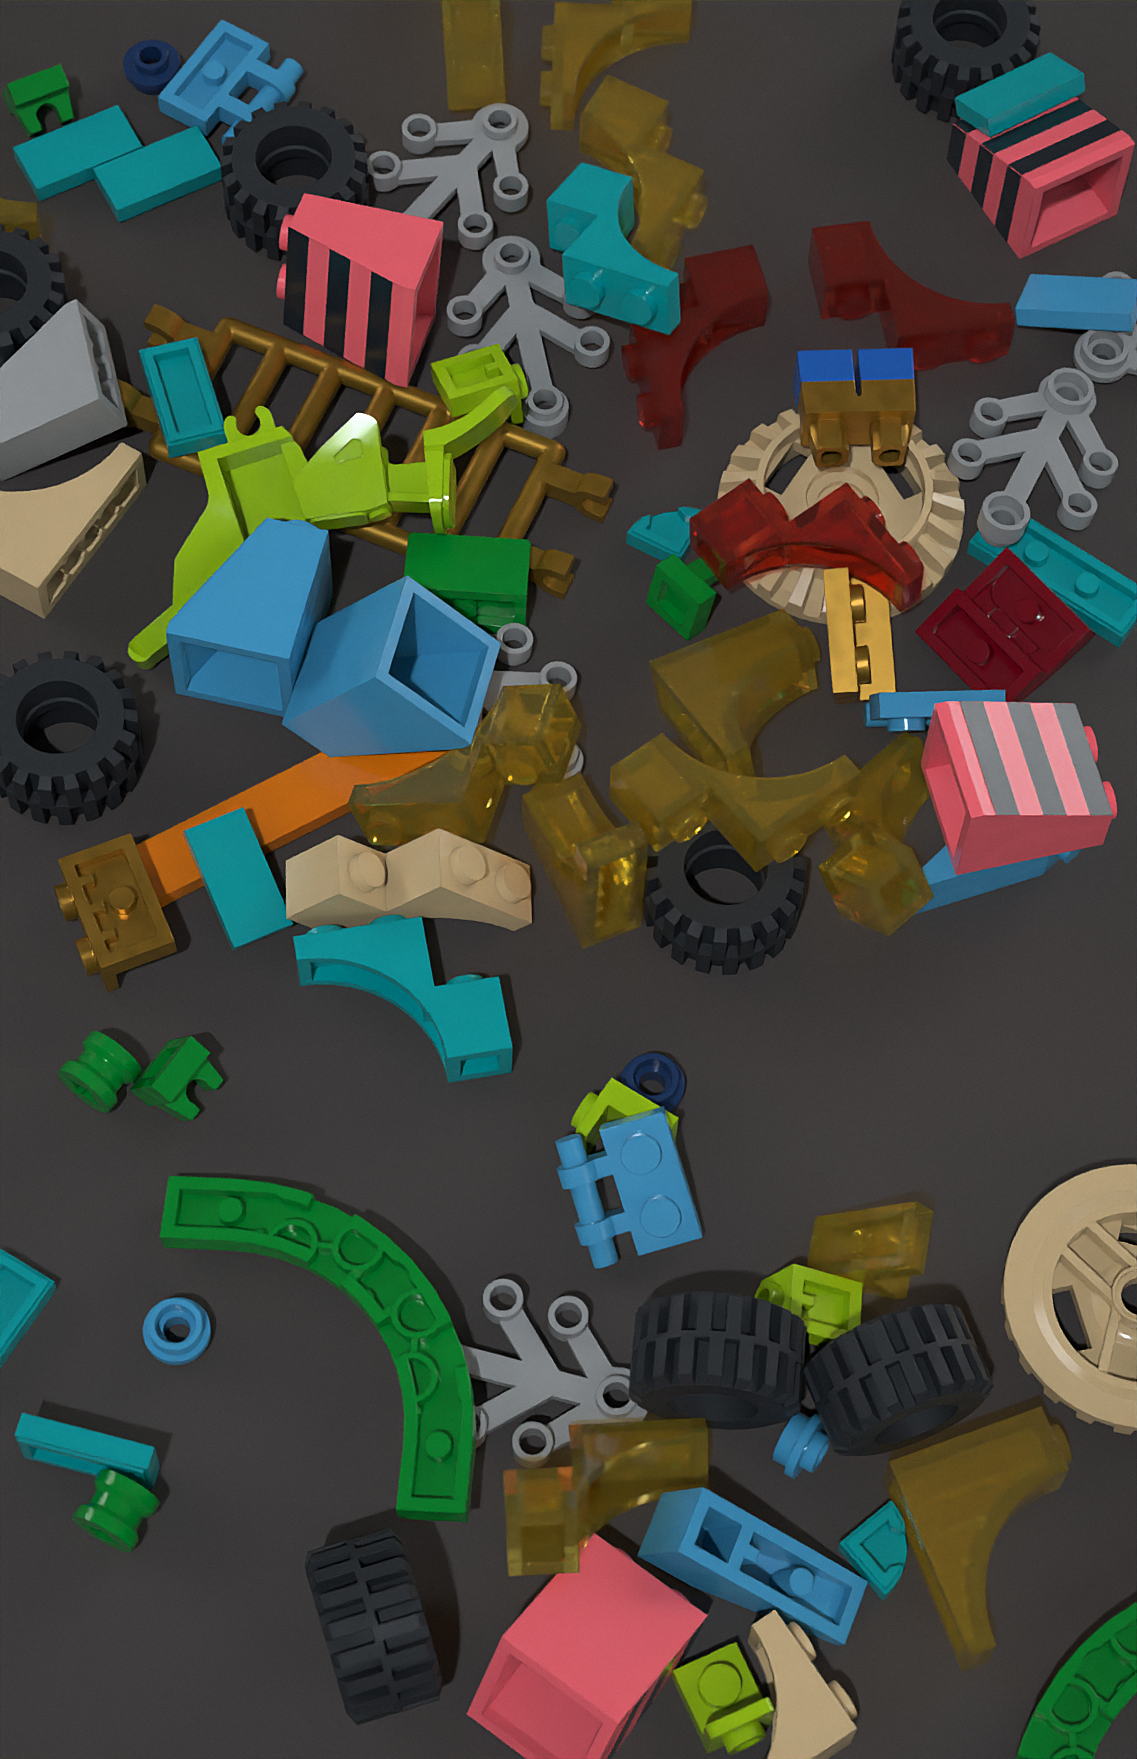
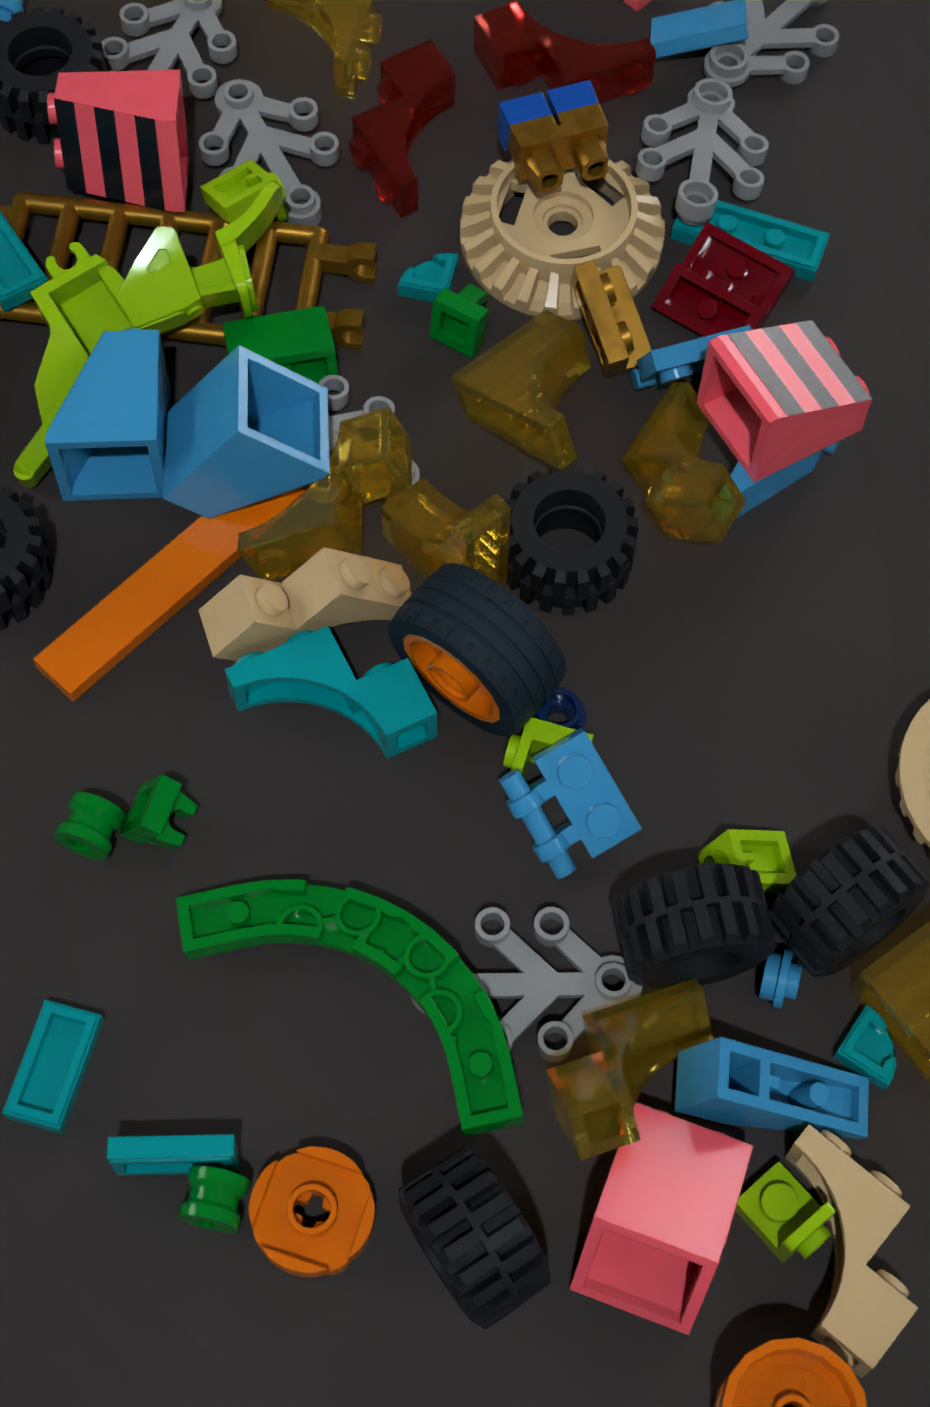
camera: 15 degrees left, 0 degrees up
(115, 909) = (63, 686): pearl gold bracket -> none
(173, 1312) = (220, 1011): dark azure plate -> none
(208, 1515) = (329, 1244): none -> orange plate
(237, 878) = (161, 635): teal tile -> none
(575, 988) = (478, 649): none -> black wheel
(600, 268) = (317, 79): teal arch -> none
(752, 535) = (505, 254): clear red arch -> none
(757, 815) = (581, 469): clear yellow arch -> none
(874, 1246) = (786, 797): clear yellow slope -> none

